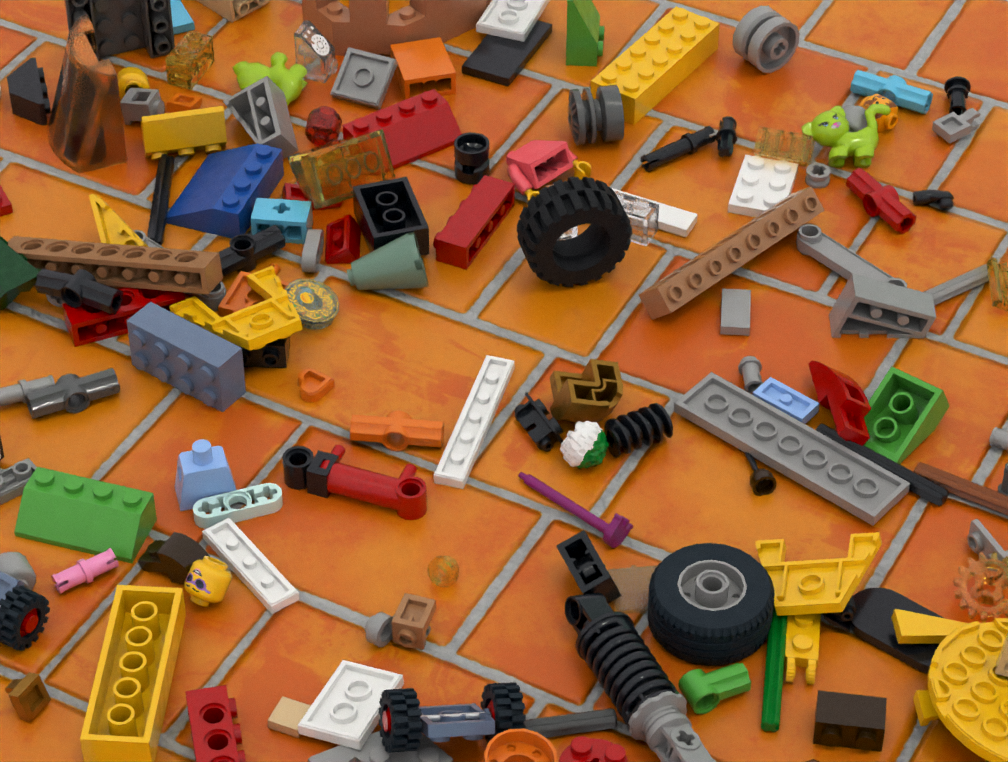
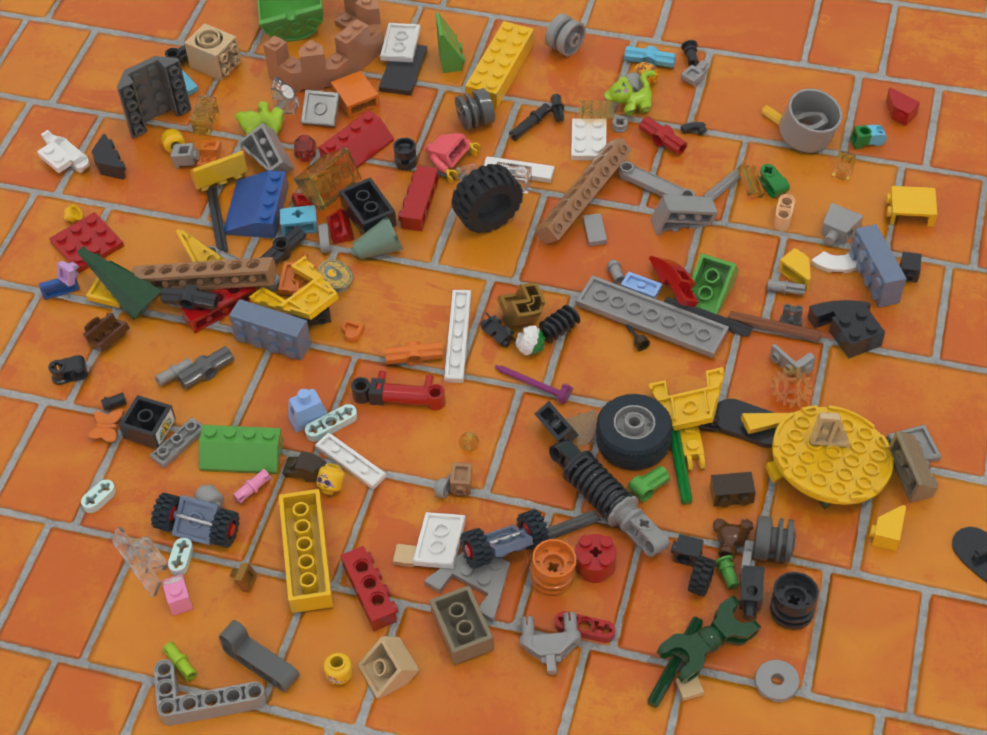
camera: 10 degrees left, 10 degrees up
(86, 108) = (152, 165): clear orange windscreen -> none

